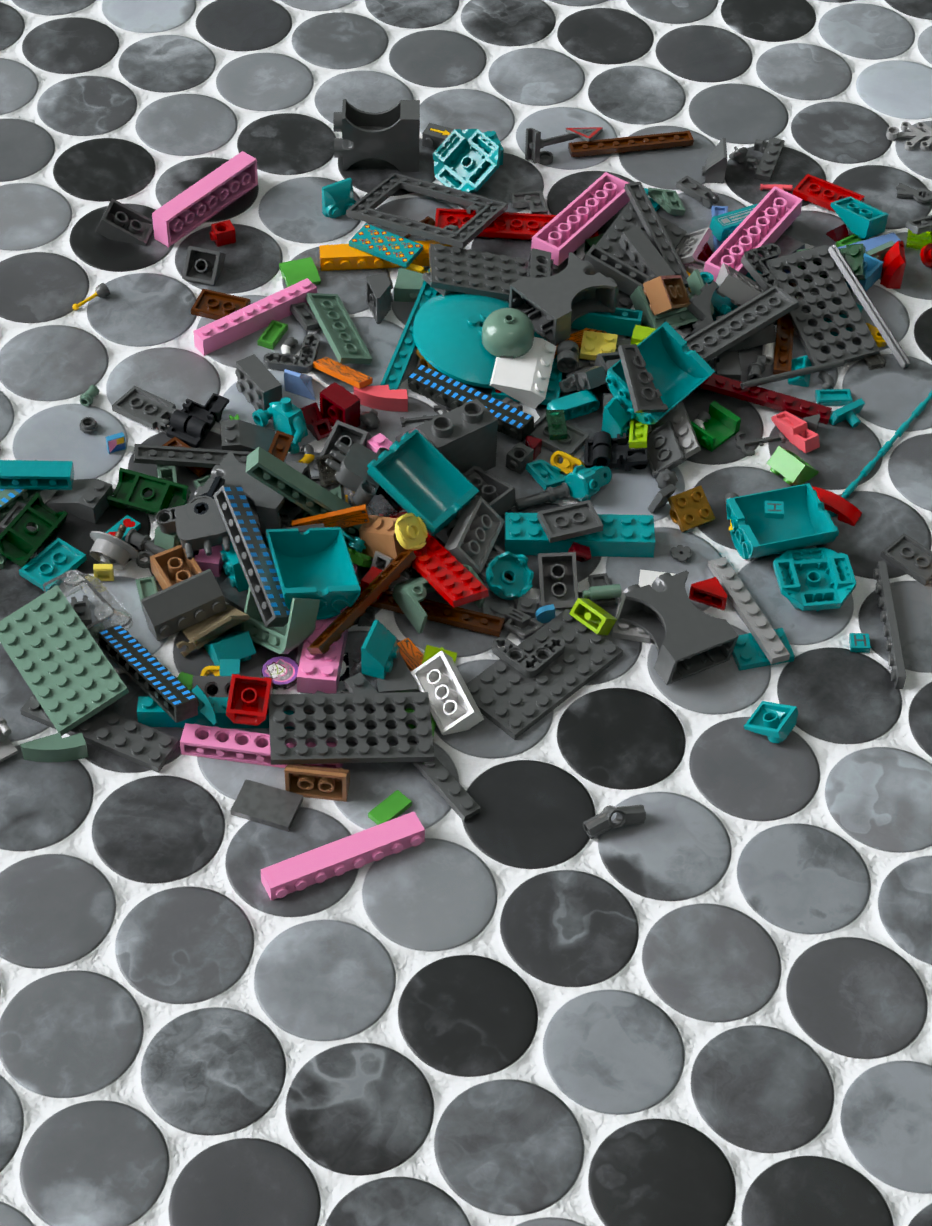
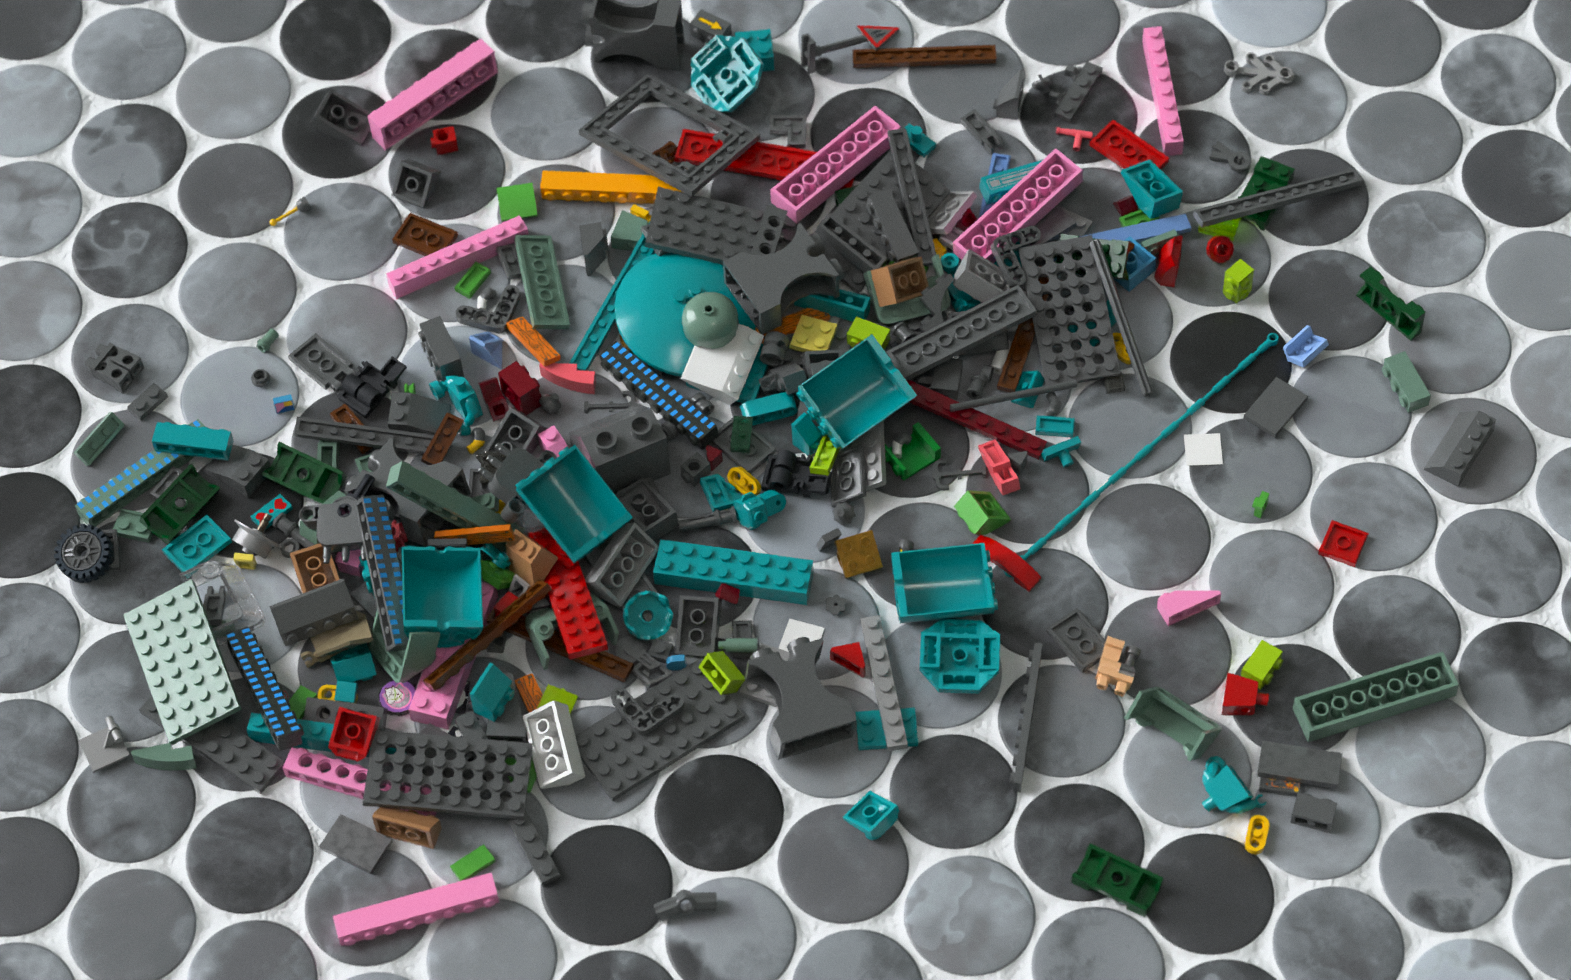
camera: 15 degrees right, 10 degrees up
(146, 587) = (285, 585): sand green tile -> none
(208, 710) = (314, 740): teal slope -> none
(337, 198) = (576, 108): teal slope -> none
(386, 245) = (613, 179): teal tile -> none
(411, 532) = (549, 561): light yellow tile -> none
(570, 521) = (721, 561): dark grey plate -> none
(639, 382) = (830, 412): dark grey wing -> none
(667, 200) = (944, 142): sand green wing -> none
(774, 509) = (935, 573): teal tile -> none
(842, 151) = (1162, 91): none -> bright pink brick
(859, 642) = (990, 734): teal tile -> none

